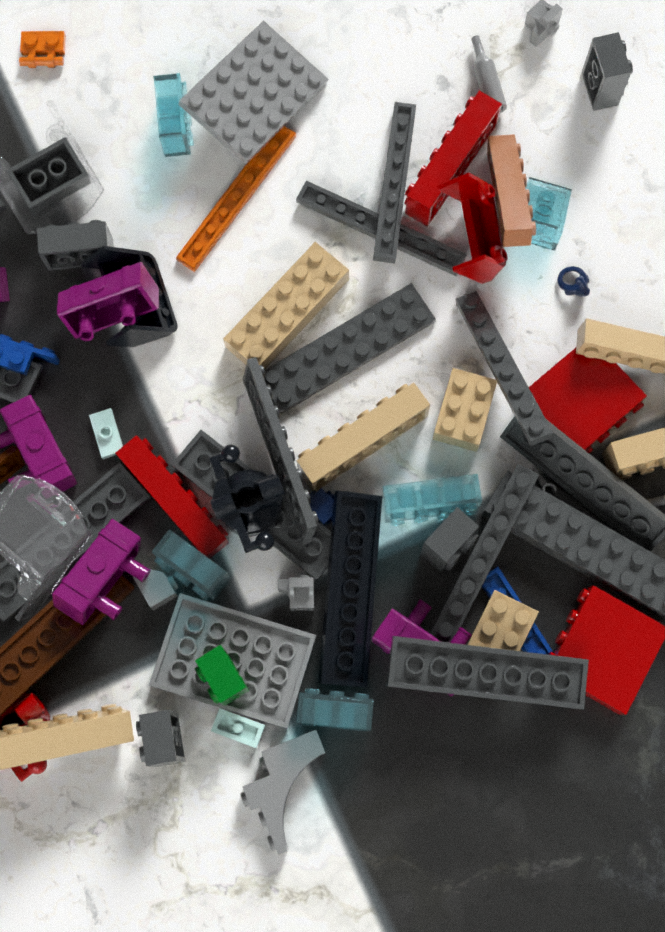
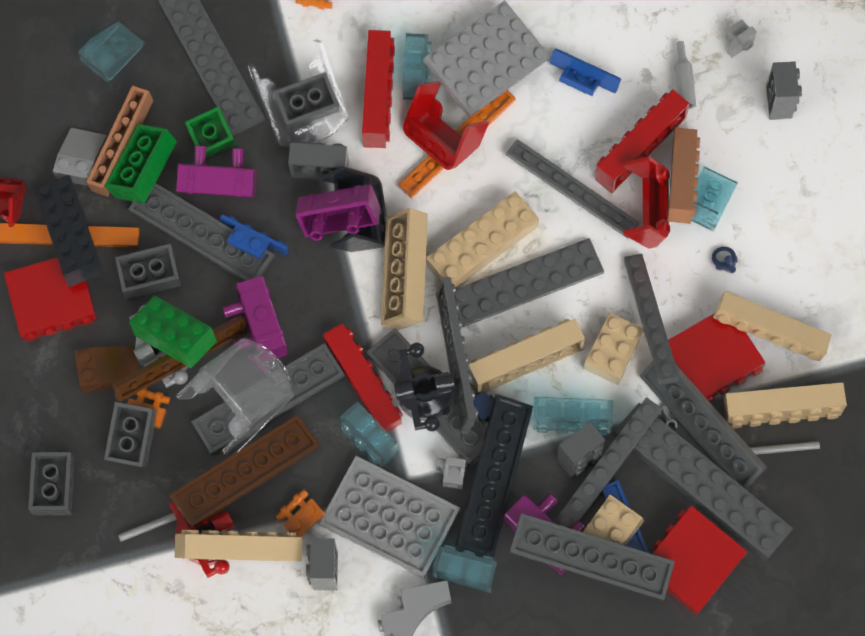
camera: 10 degrees right, 5 degrees down
(98, 572) = (294, 426): magenta piece -> none
(106, 433) = (317, 318): light aqua plate -> none
(131, 680) = (303, 519): none -> orange plate
(132, 148) = (378, 89): none -> red brick
(157, 589) = (336, 446): light grey slope -> none
(199, 357) = (404, 269): none -> tan brick
(207, 192) = (434, 135): none -> red windscreen
(221, 675) = (380, 524): green brick -> none
(238, 728) = (384, 570): light aqua plate -> none
(367, 92) = (583, 75): none -> blue bracket
(394, 183) = (590, 152): dark grey plate -> none

